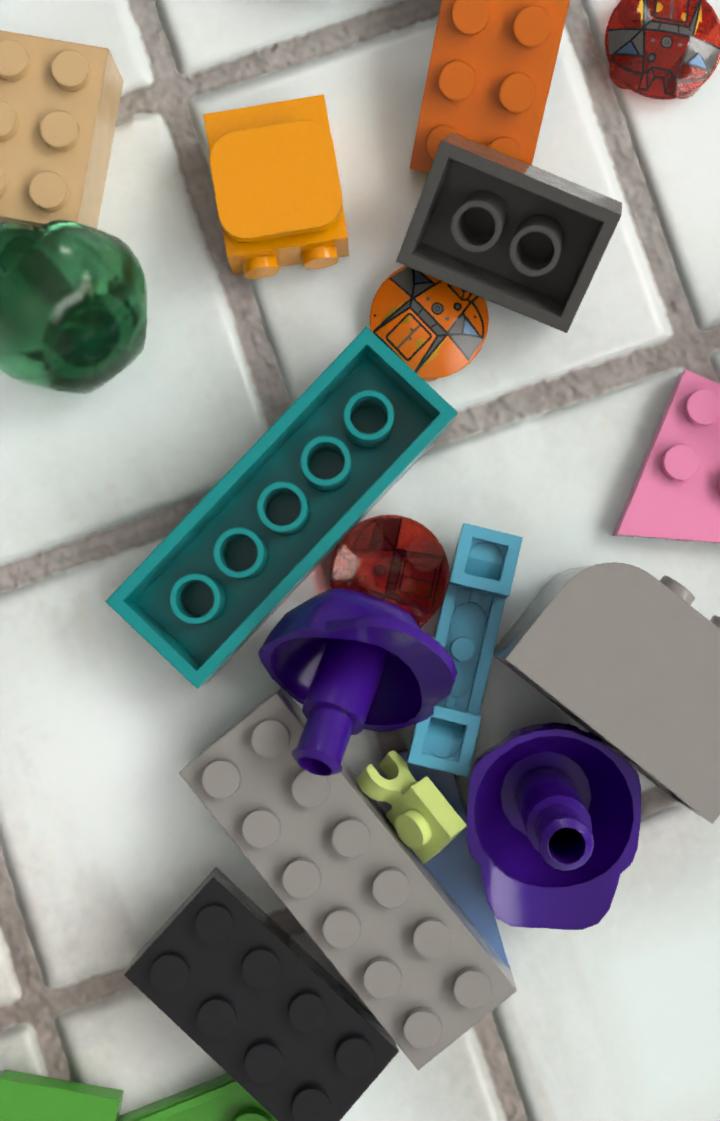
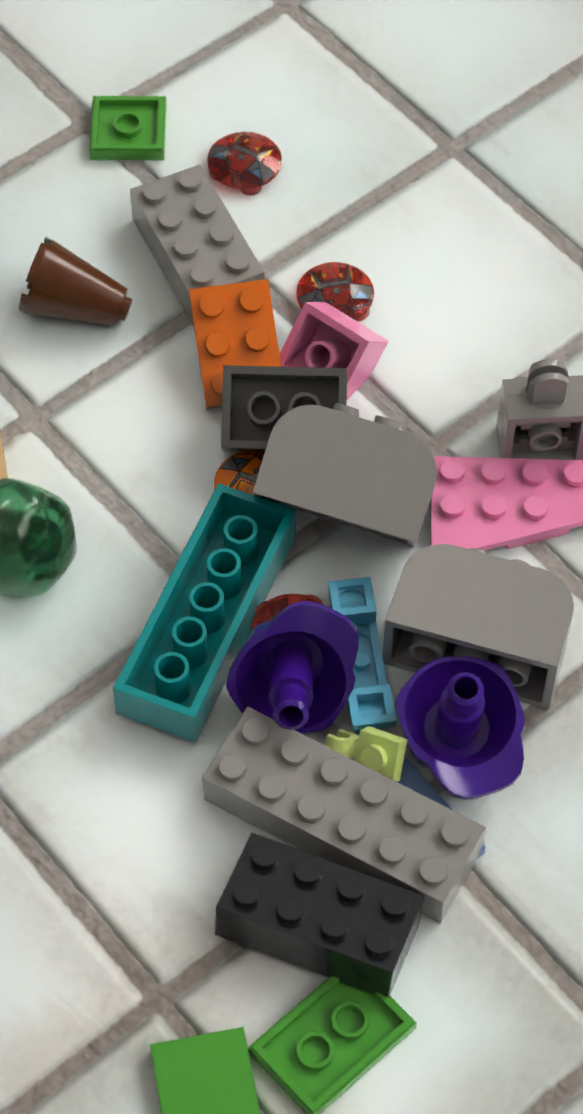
camera: 20 degrees left, 30 degrees down
(277, 186) = (127, 439): light orange brick -> none
(554, 389) = (349, 470): none -> light grey brick
(618, 137) = (332, 340): none -> bright pink slope

